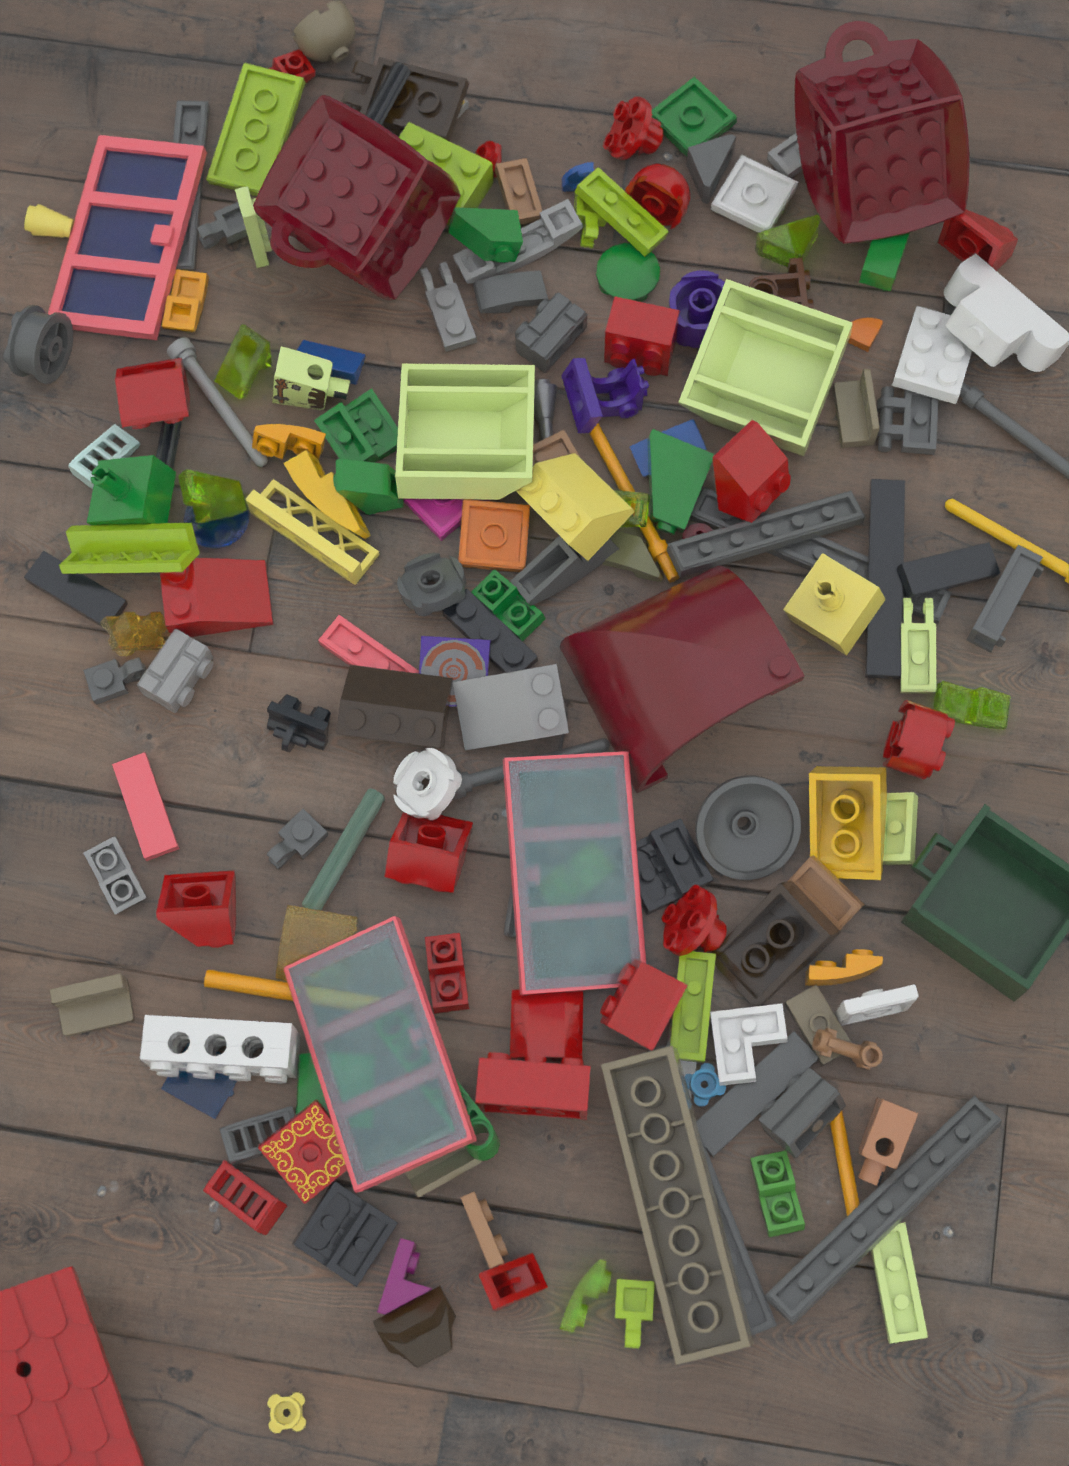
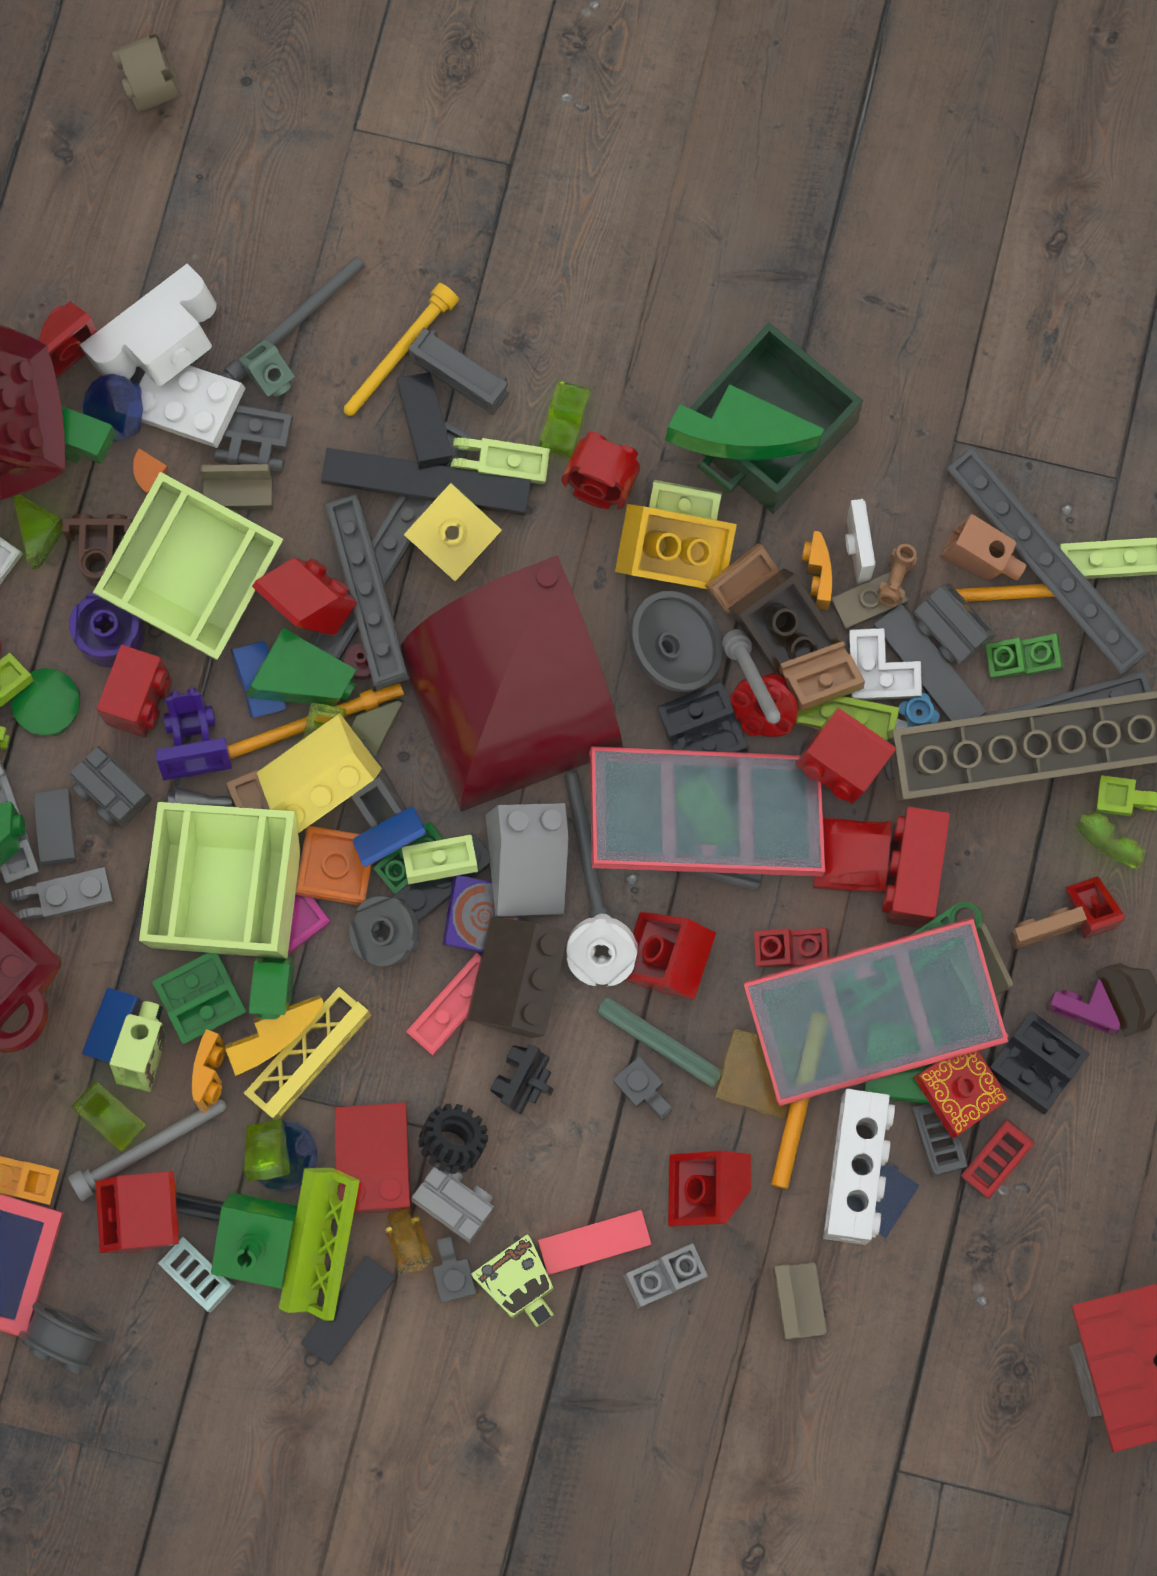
camera: 85 degrees left, 5 degrees up
(103, 736) = (517, 1281): none -> torso
(215, 662) = (460, 1124): none -> black tyre
(503, 622) = (439, 859): none -> yellowish green plate
(521, 574) = (389, 836): none -> blue slope
(727, 976) = (822, 676): none -> medium nougat plate
(749, 893) = (738, 647): none -> light grey piece
(919, 292) = (115, 402): none -> clear blue dish
(973, 862) = (743, 429): none -> green slope
(988, 417) = (260, 361): none -> sand green brick

